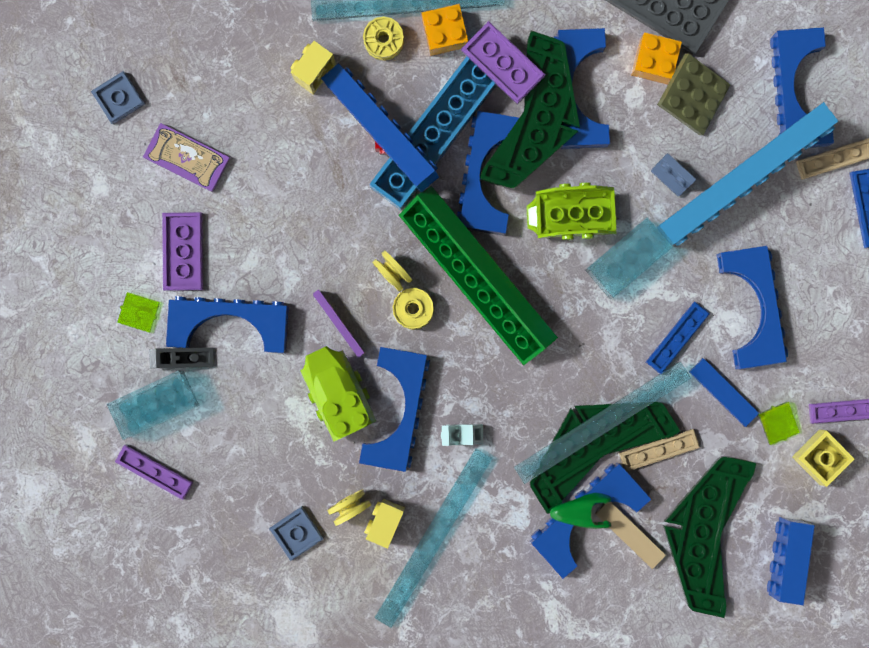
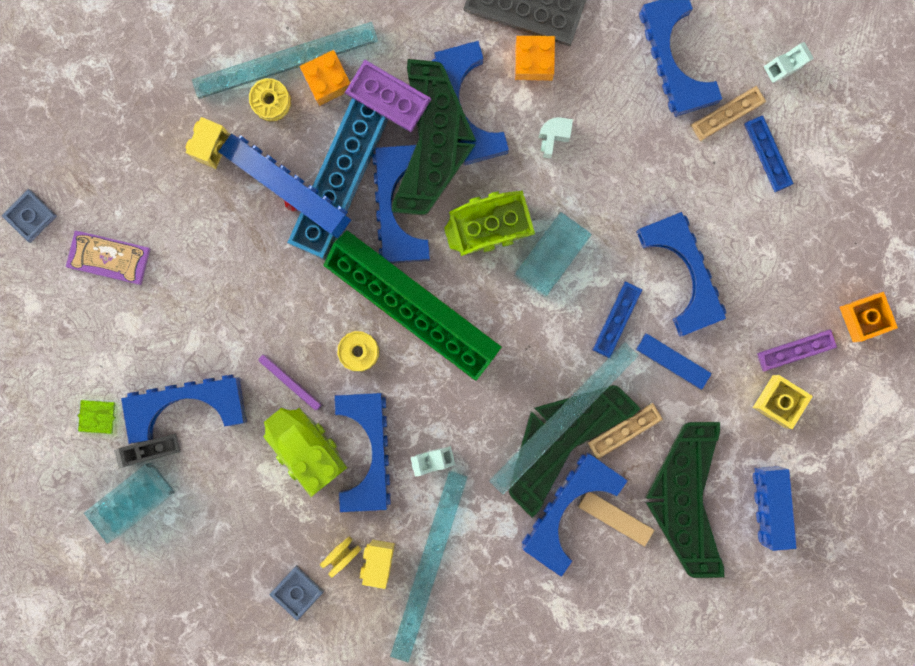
camera: 10 degrees left, 0 degrees up
(154, 472) = (146, 566): medium lavender tile -> none
(182, 251) = (125, 348): medium lavender tile -> none
(392, 271) = (329, 320): light yellow wheel -> none
(578, 511) = (561, 508): green animal -> none
(661, 135) = (554, 129): none -> light aqua brick
(673, 175) = (576, 165): sand blue bracket -> none
(693, 94) = (578, 84): olive plate -> none
(750, 172) = (649, 144): dark azure brick -> none
(778, 423) = (732, 378): clear neon green piece -> none

